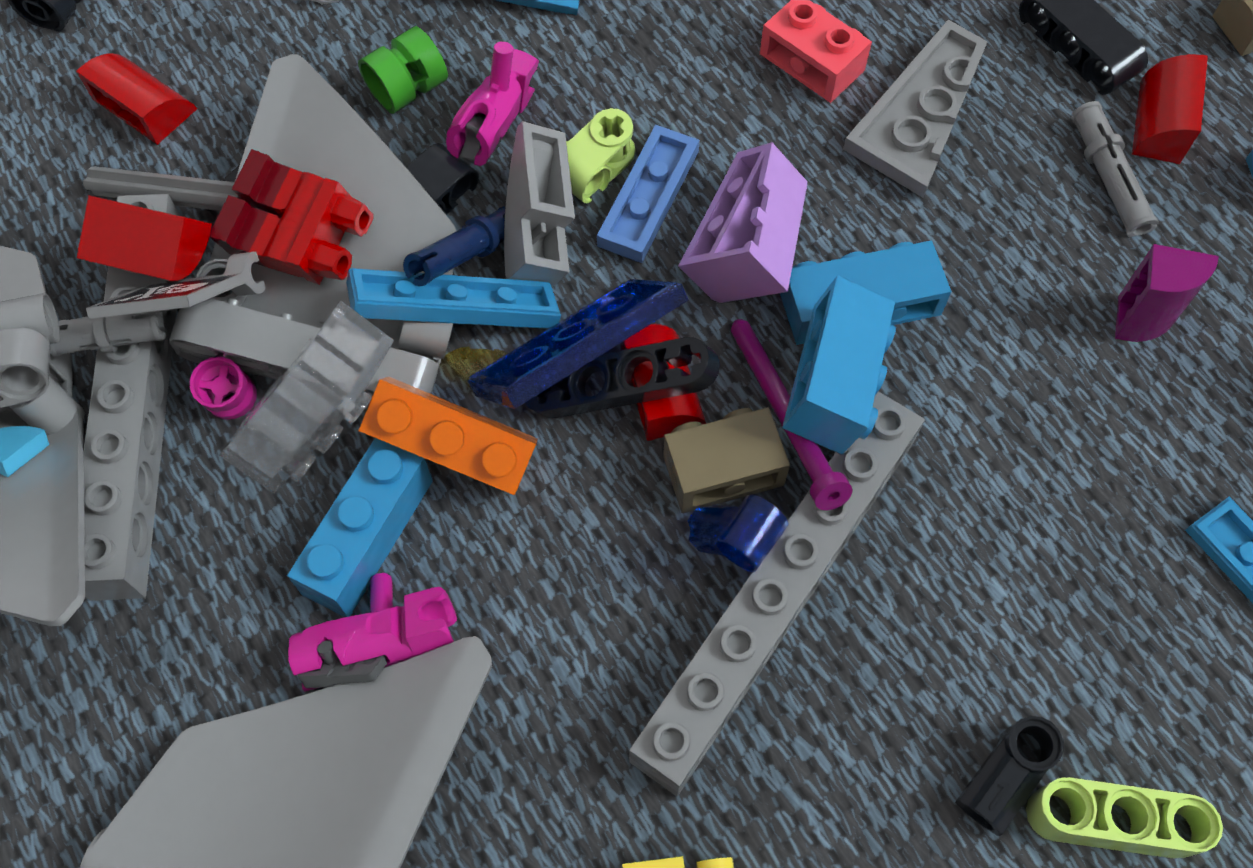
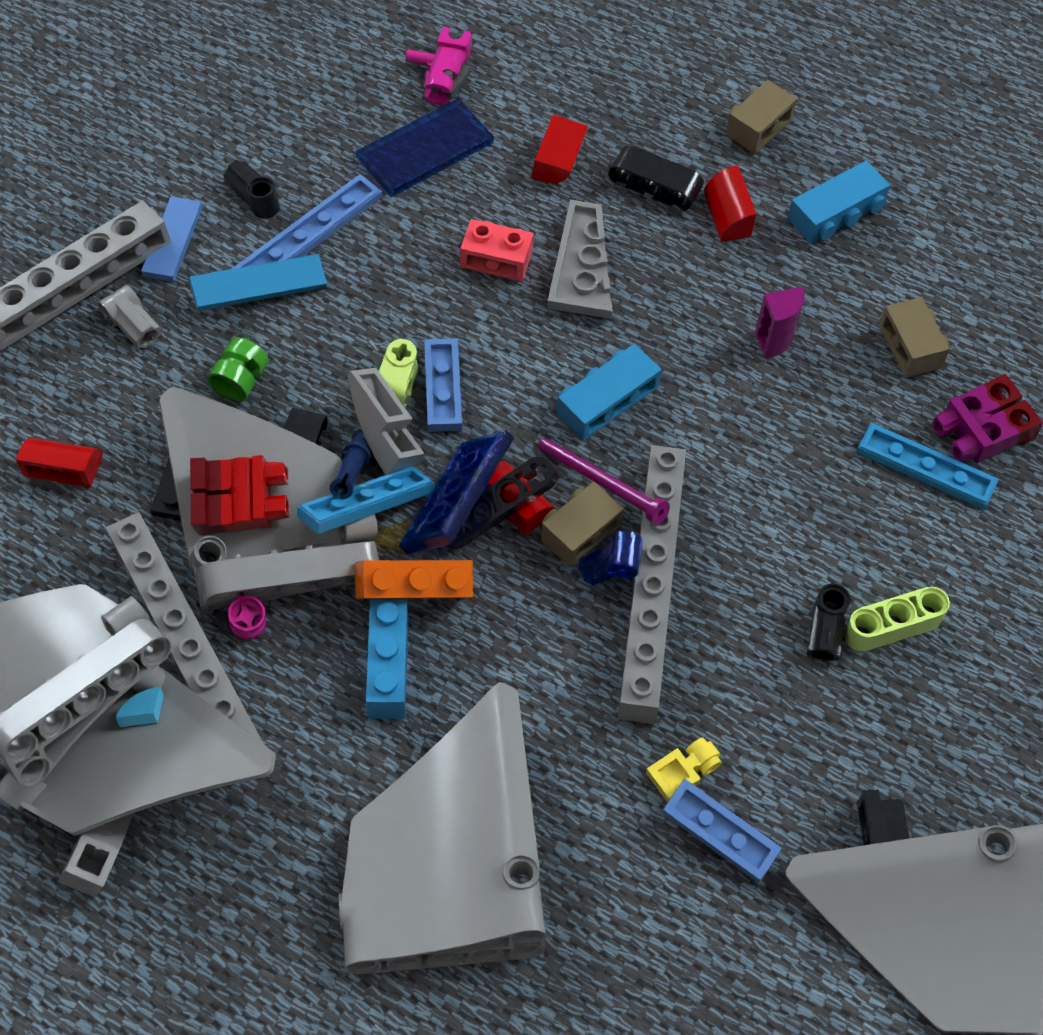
camera: 30 degrees left, 5 degrees down
(108, 332) = (167, 607): light grey pin -> none
(141, 239) = (153, 543): red brick -> none
(166, 294) = (205, 565): light grey flag -> none
(181, 189) = (147, 506): light grey axle -> none
(310, 401) = (322, 597): clear wedge -> none
(364, 644) = (435, 717): dark pink piece -> none
(492, 106) = (316, 370): dark pink piece -> none
(749, 229) = (522, 381): lavender wedge -> none
(841, 366) = (625, 438): dark azure brick -> none
(1107, 154) = (705, 246): light grey pin -> none

